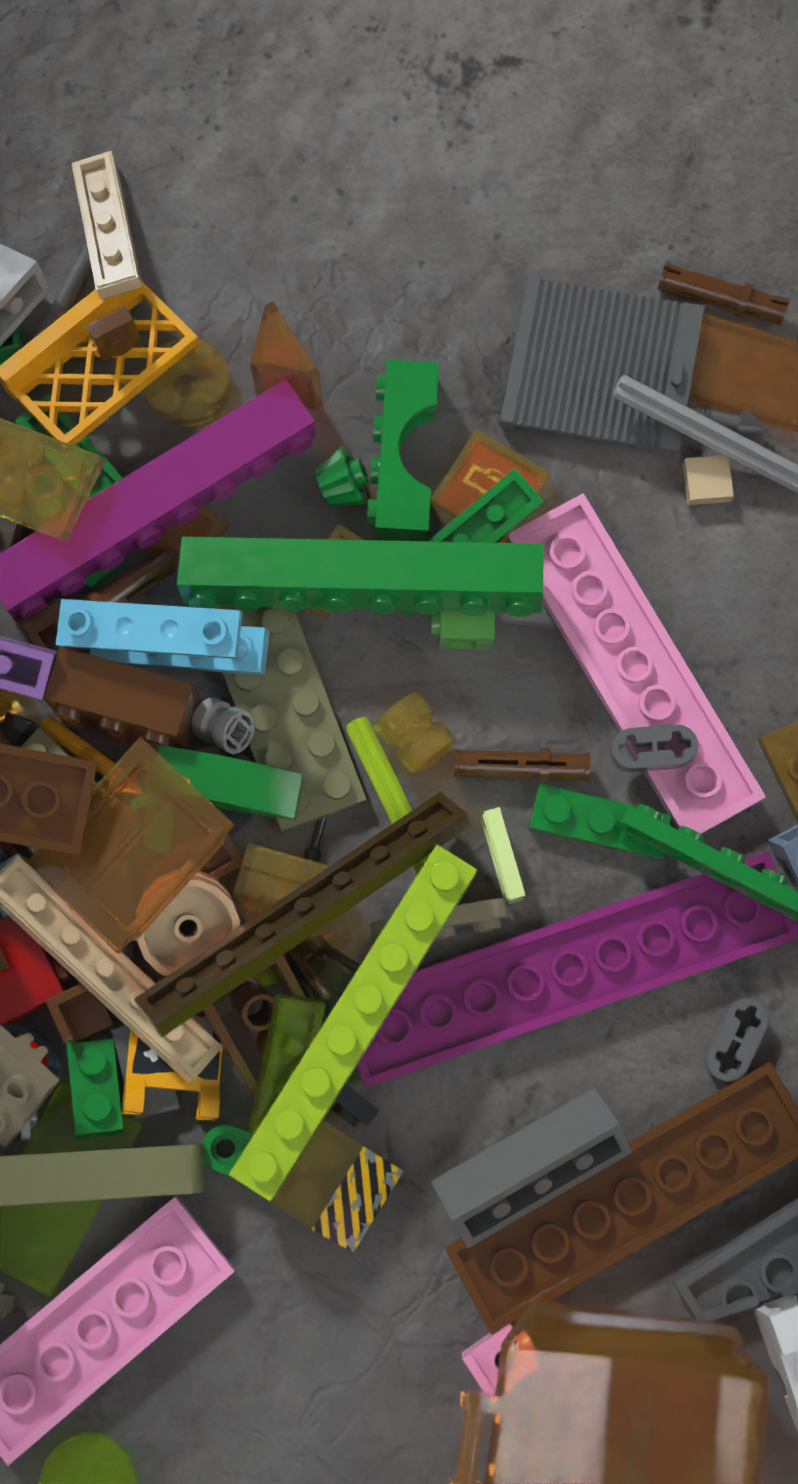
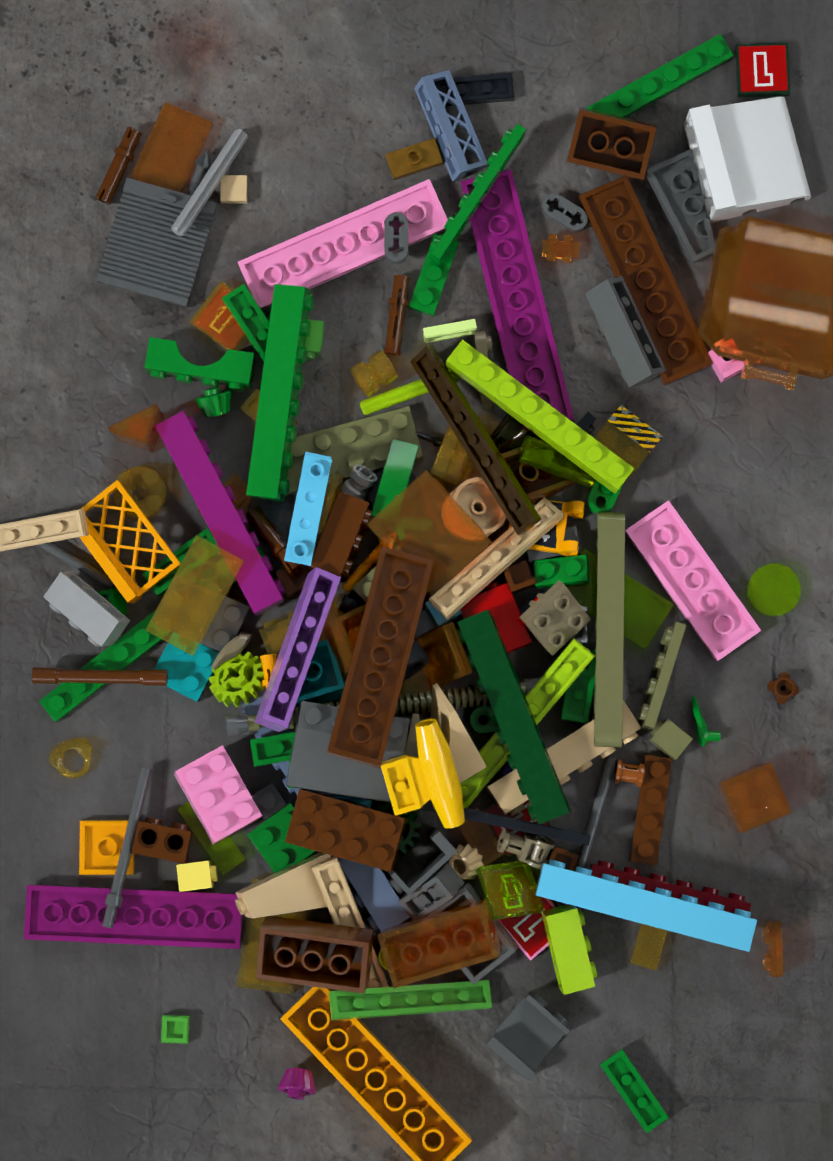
camera: 85 degrees left, 5 degrees up
(114, 334) = (115, 526): reddish brown plate -> none
(200, 671) = (333, 487): none -> clear yellow tile
(671, 1048) = (560, 249): none -> clear orange piece

